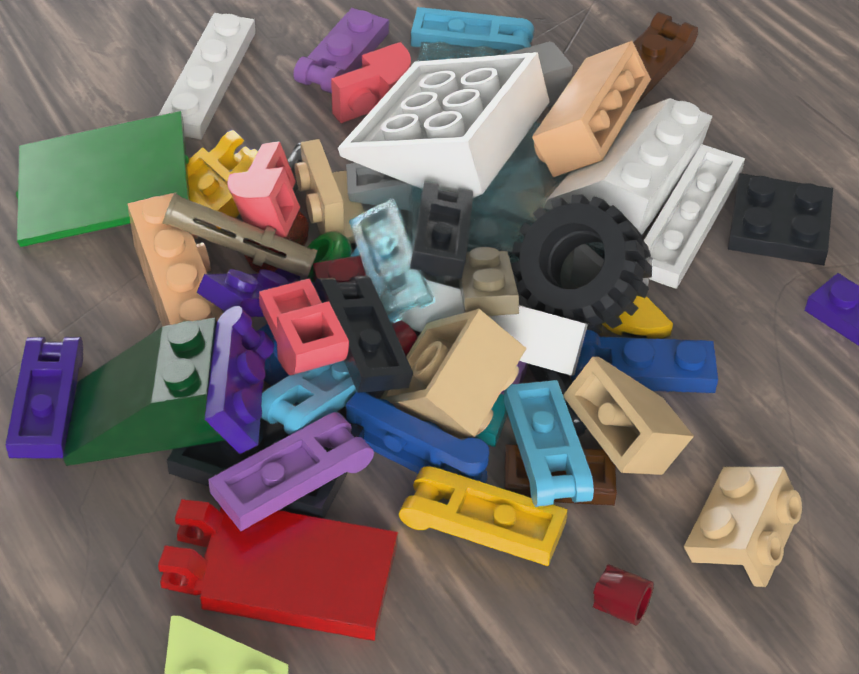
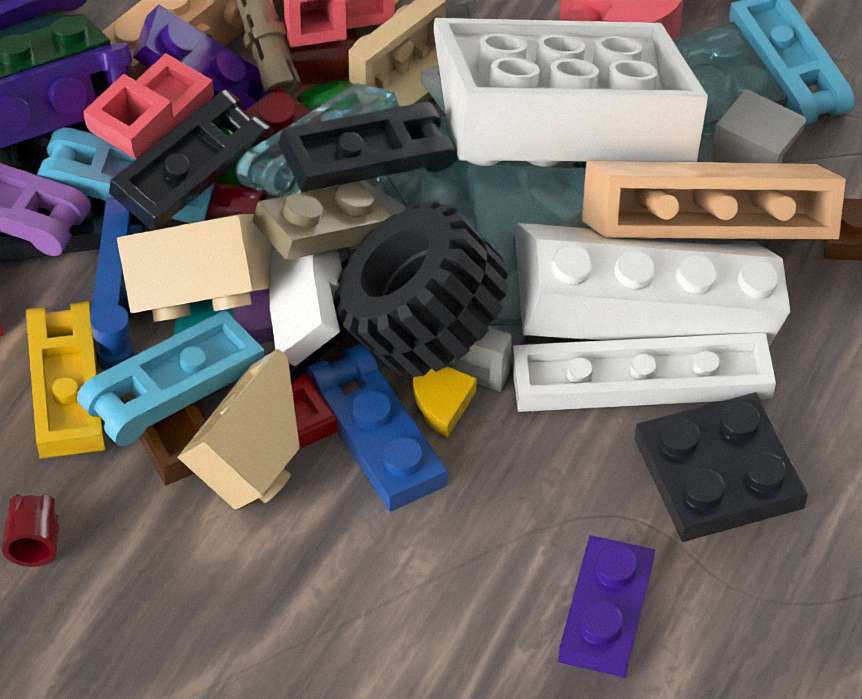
camera: 60 degrees right, 5 degrees up
(746, 521) = (195, 602): tan bracket -> none

